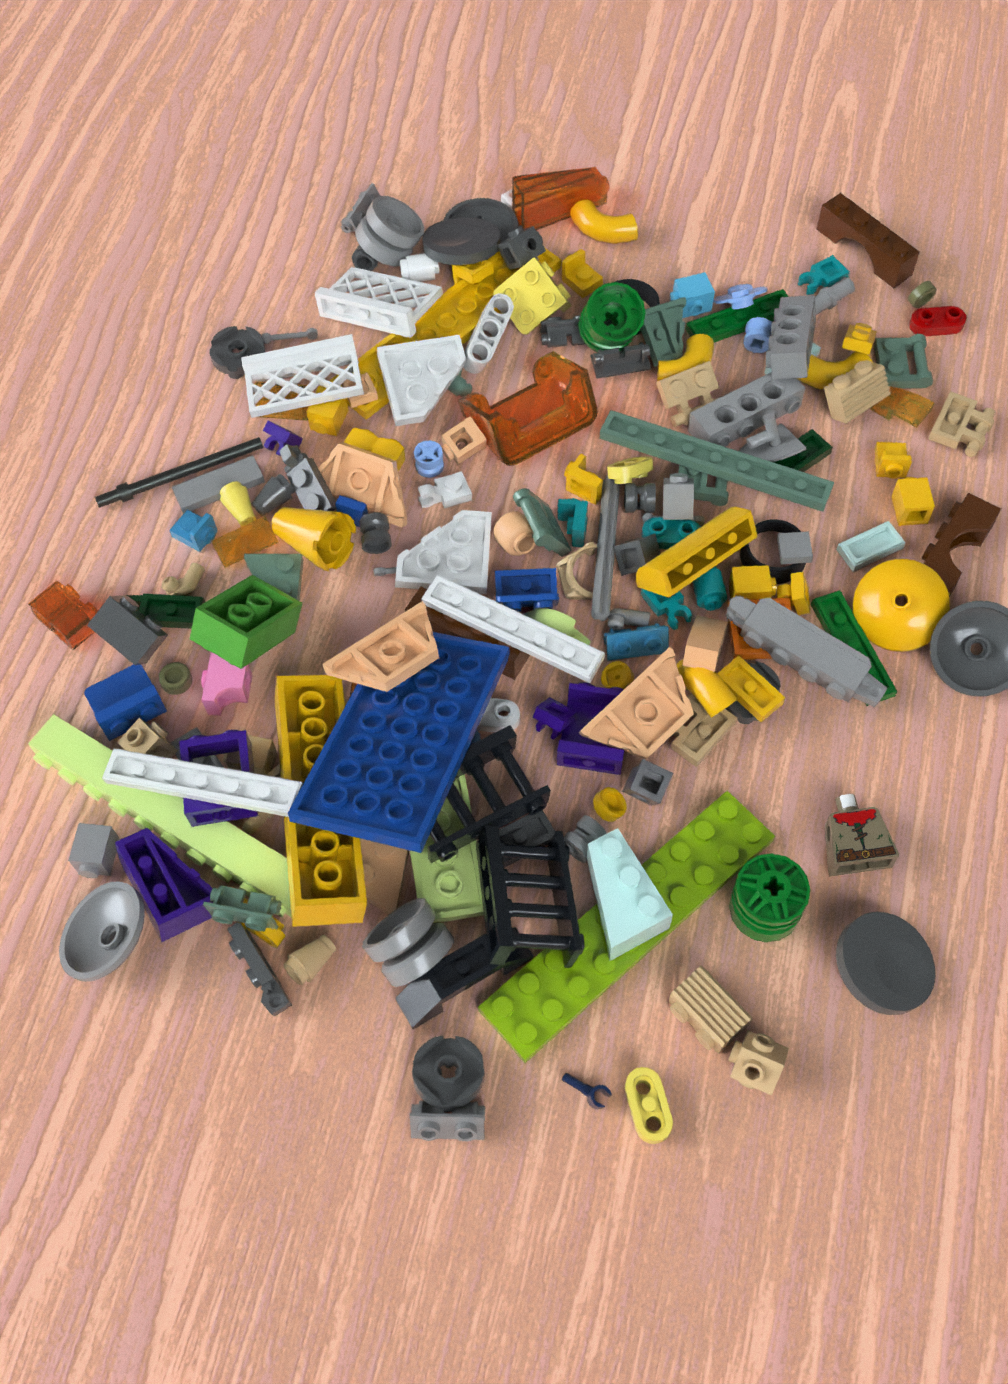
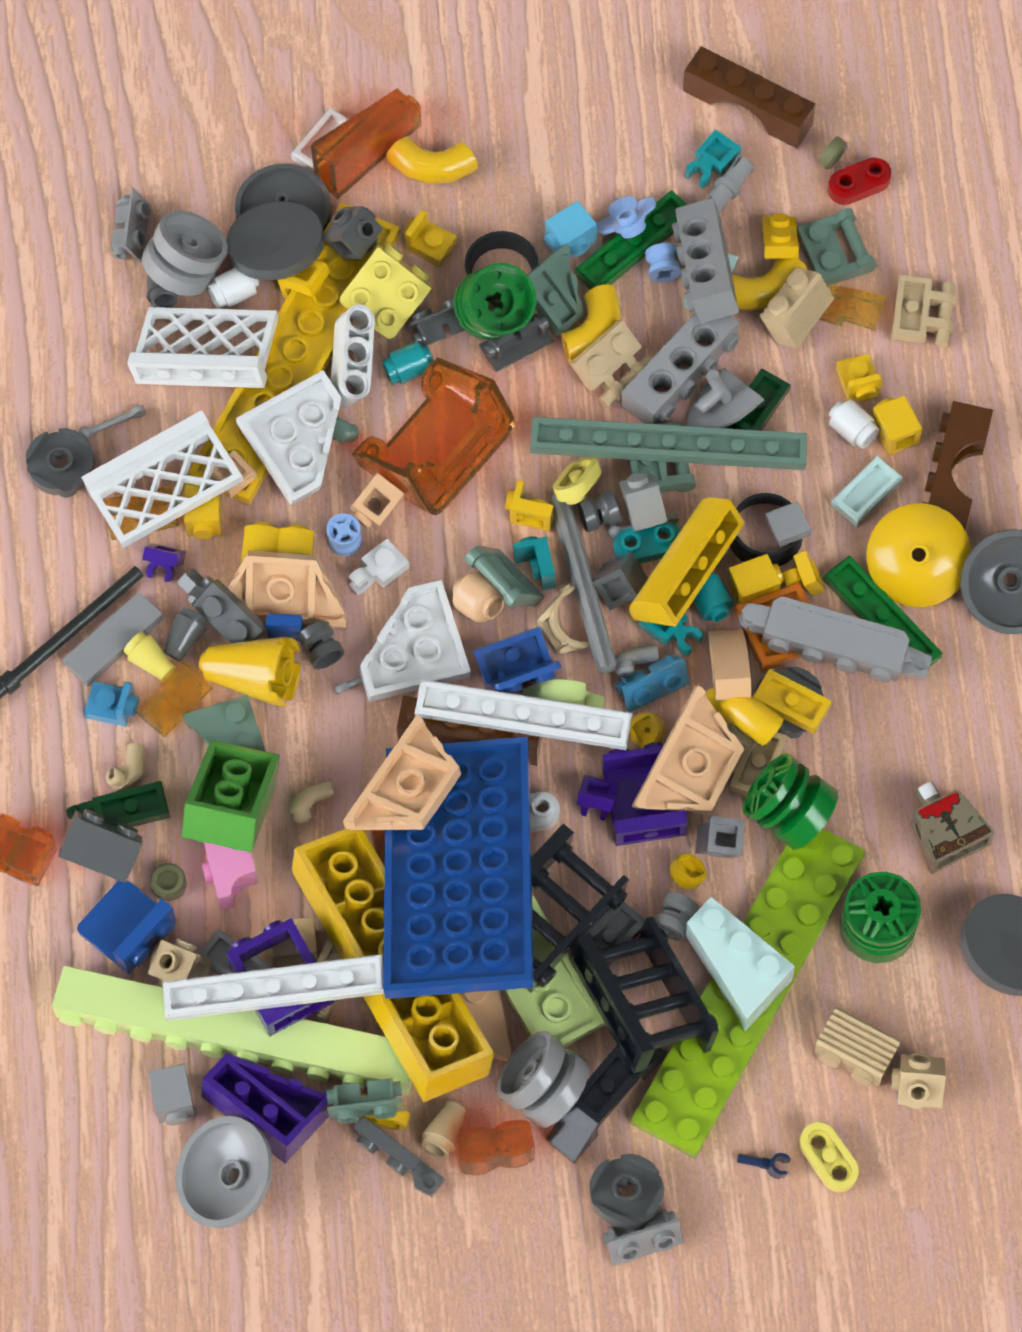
camera: 20 degrees left, 5 degrees up
(313, 646) = (307, 797): none -> tan arm
(354, 990) = (504, 1146): none -> clear orange brick
(527, 351) = (407, 363): none -> teal brick
(723, 773) = (790, 801): none -> green wheel
(876, 490) = (853, 423): none -> white brick

